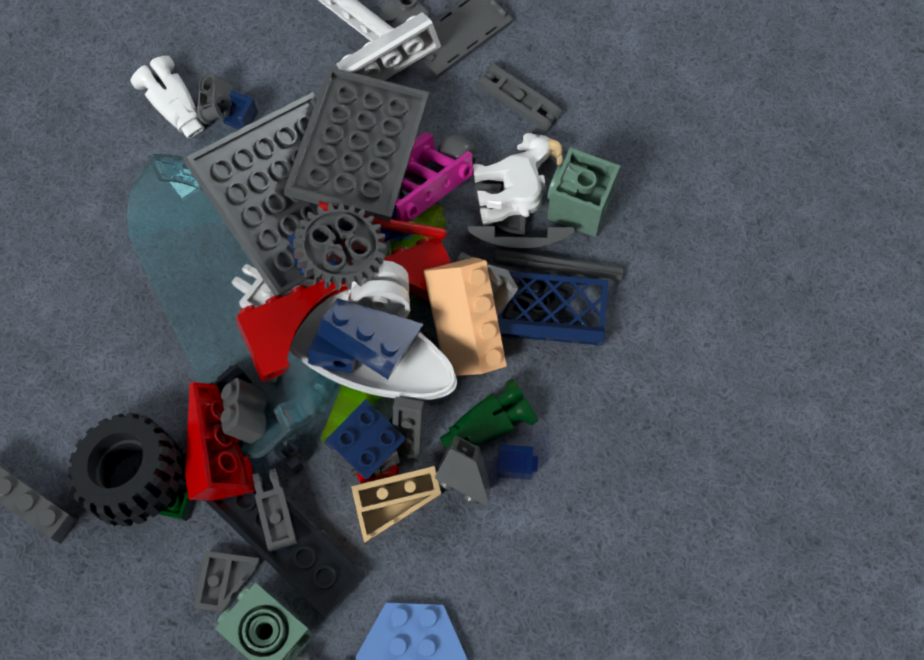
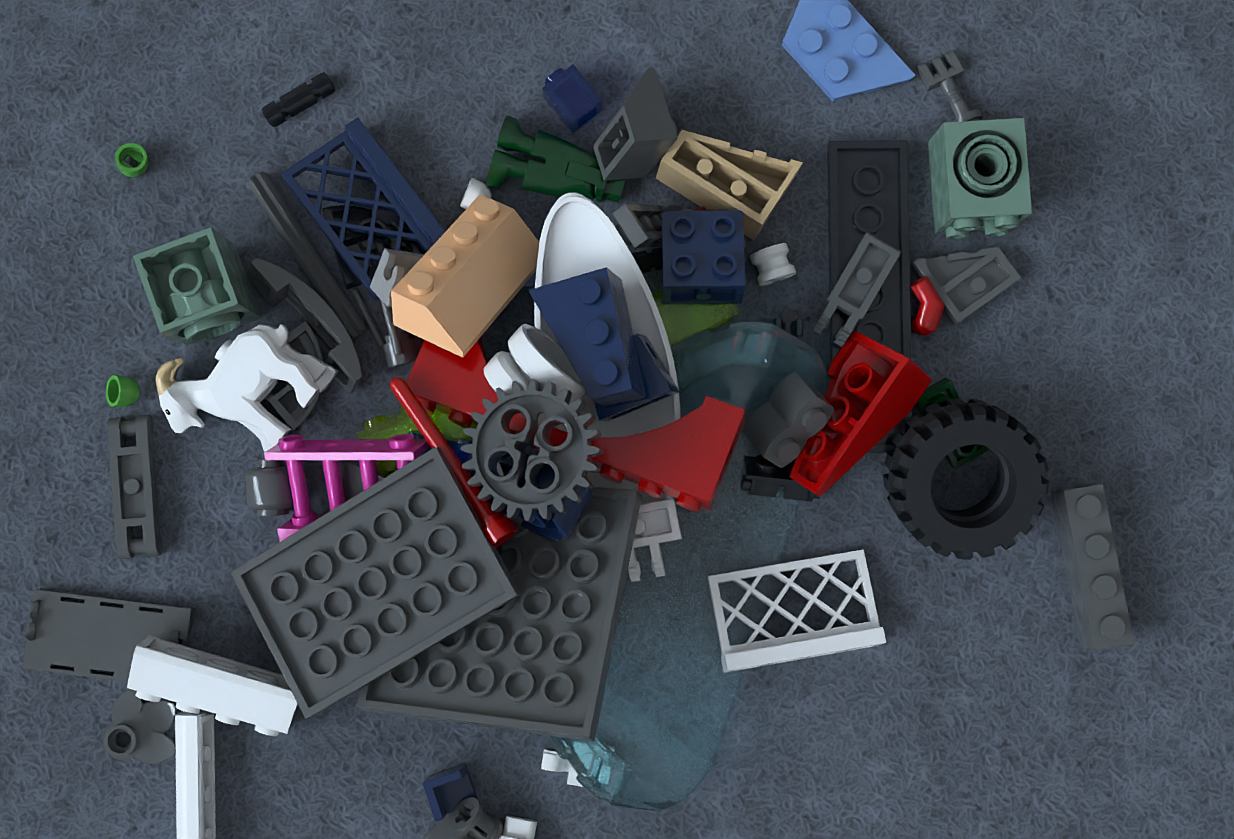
camera: 135 degrees left, 15 degrees up
(136, 320) = (799, 645): none -> white fence
(227, 544) = (931, 307): none -> red arm
(330, 484) = (772, 264): none -> white wheel
(511, 371) = (473, 190): none -> white hinge
(570, 128) = (122, 391): none -> bright green hinge
(645, 329) = (298, 99): none -> black axle
(682, 218) = (135, 153): none -> bright green hinge

